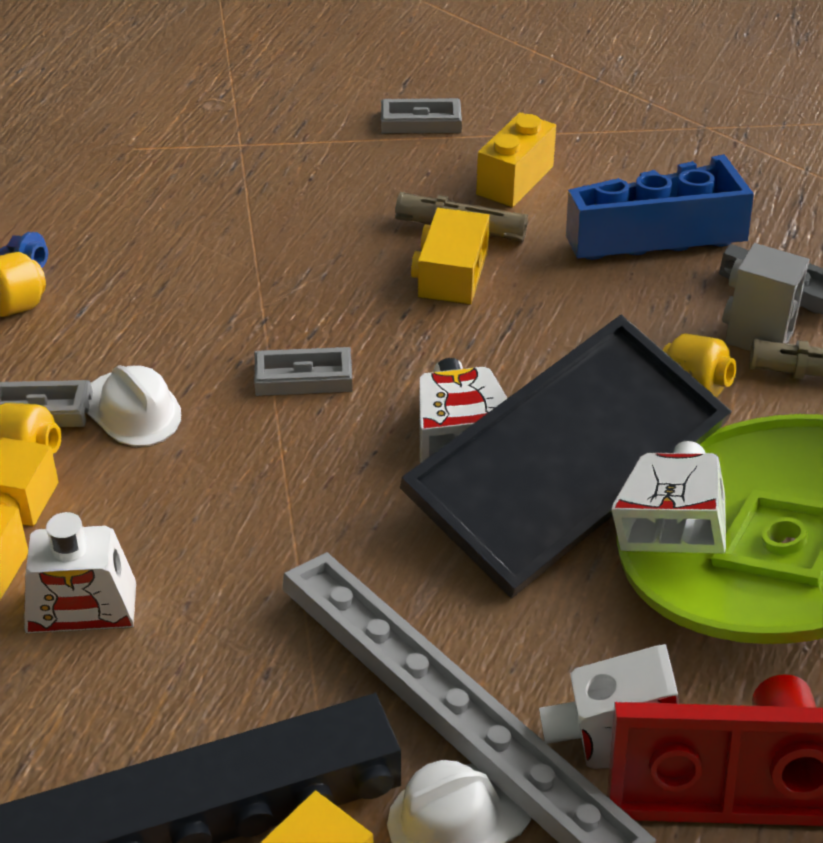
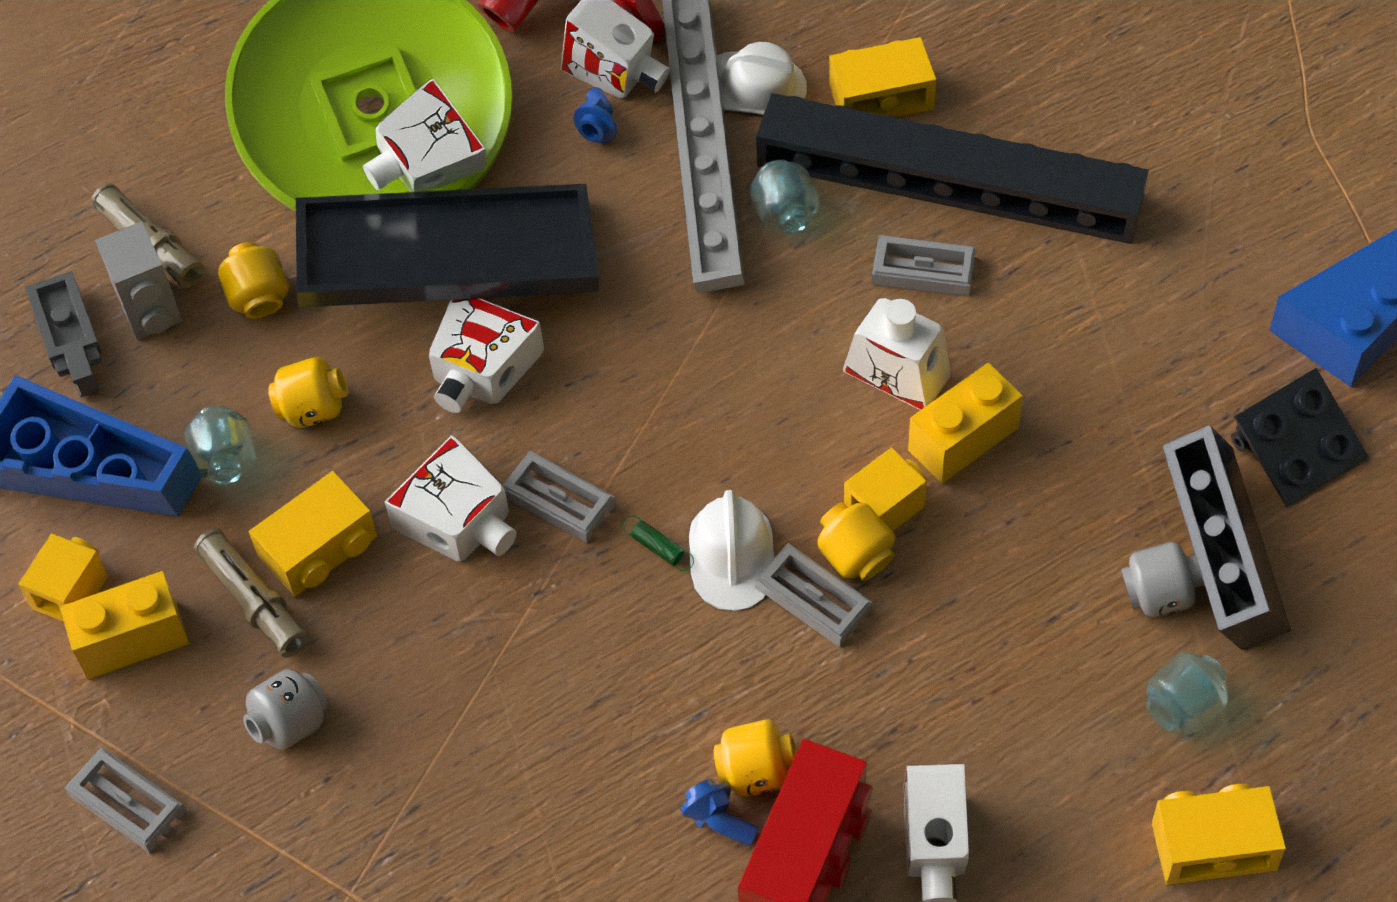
camera: 140 degrees left, 15 degrees up
(121, 718) = (922, 271): none -> light grey tile
(195, 379) = (657, 542): none -> green piece
(307, 679) = (783, 195): none -> clear light blue head
(364, 172) = (285, 709): none -> light grey head
(369, 314) = (452, 505): none -> white torso
(559, 322) = (308, 392): none -> yellow head
(564, 651) = (595, 117): none -> blue plate
(582, 266) = (220, 444): none -> clear light blue head
(586, 159) = (62, 574): none -> yellow brick

